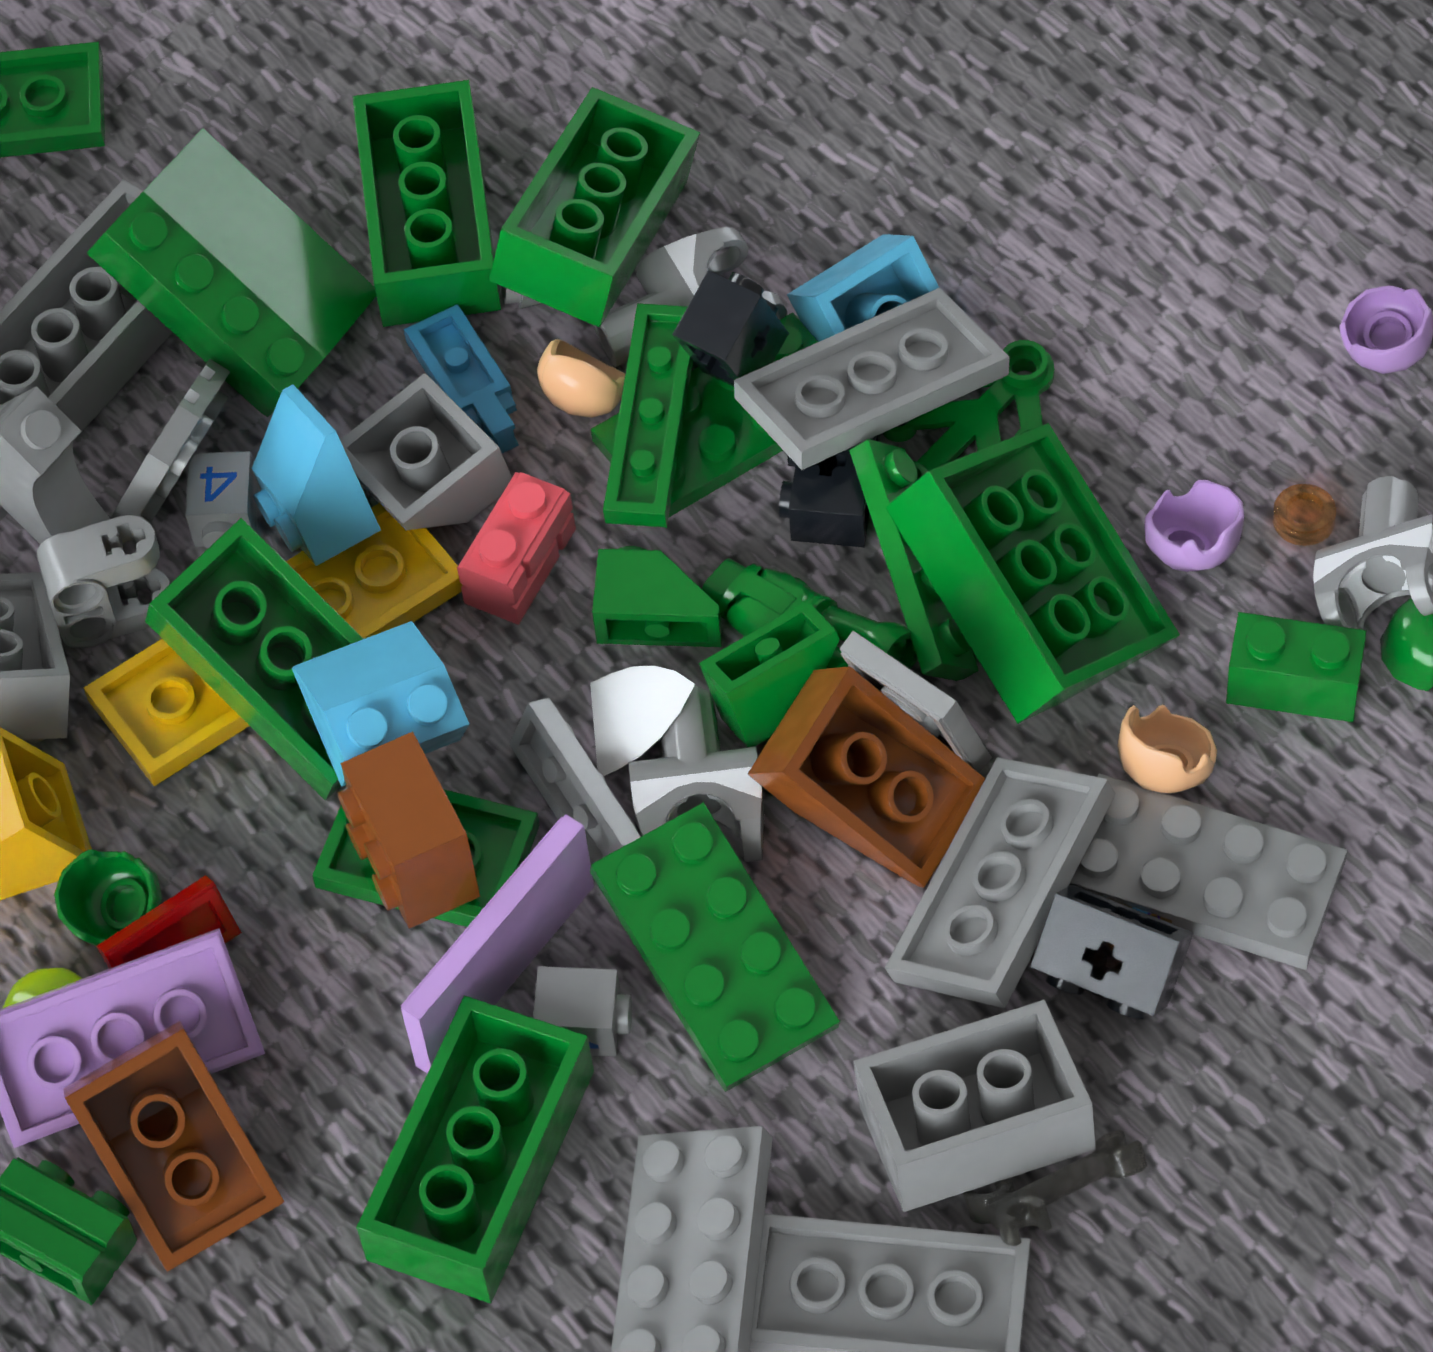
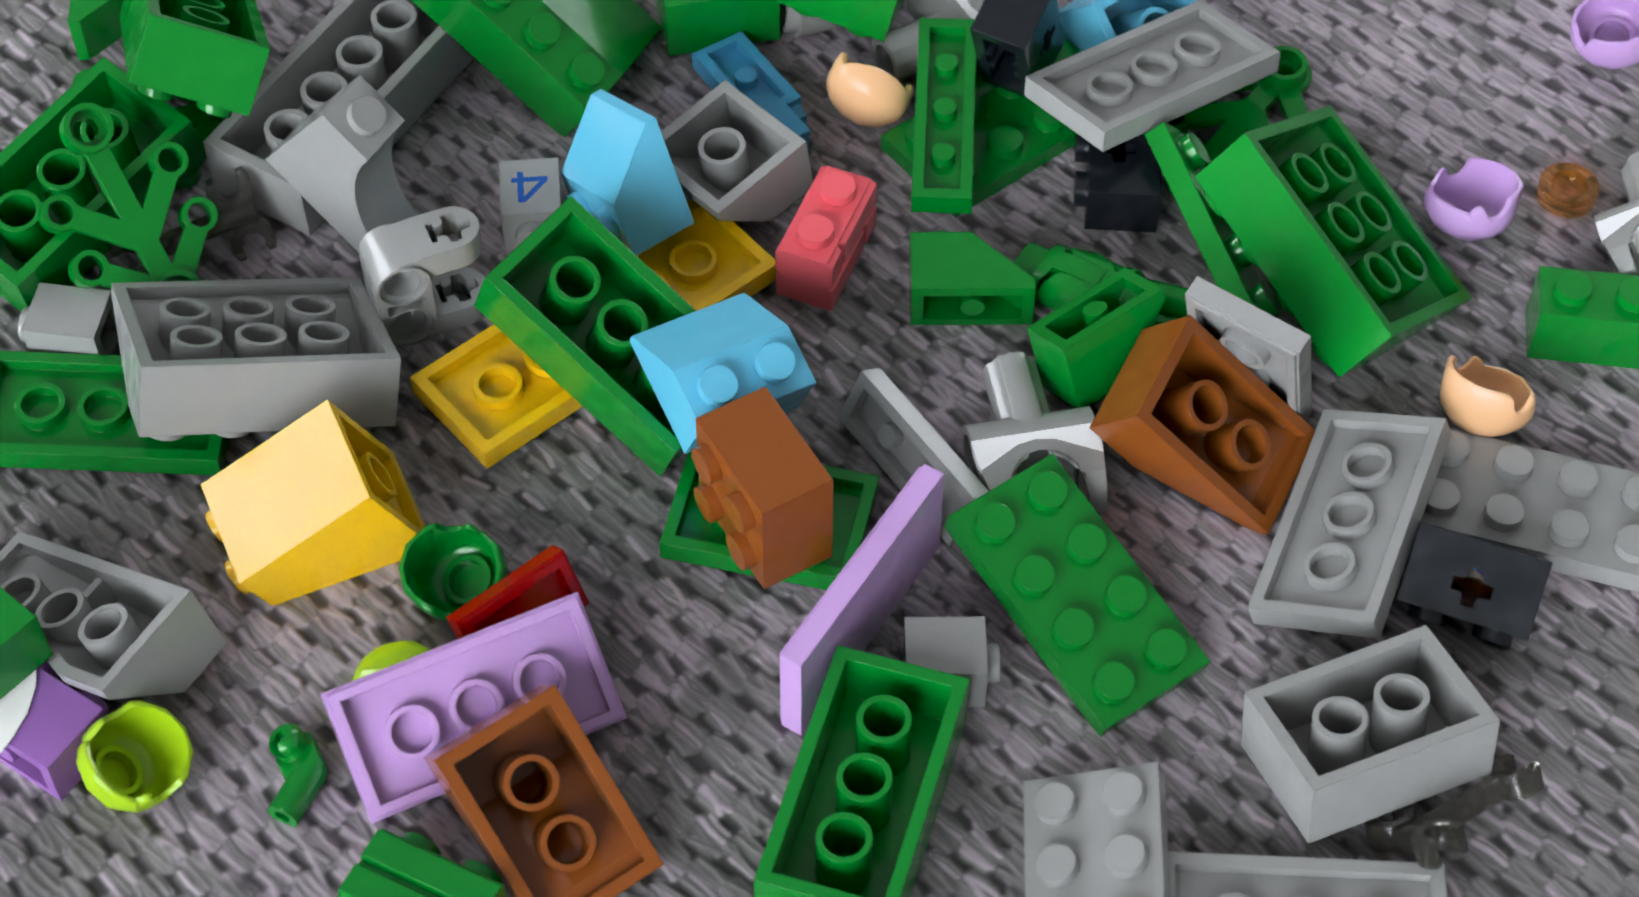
camera: 10 degrees left, 5 degrees down
(175, 444) = (486, 150): light grey plate -> none
(634, 712) = (962, 379): white sticker -> none

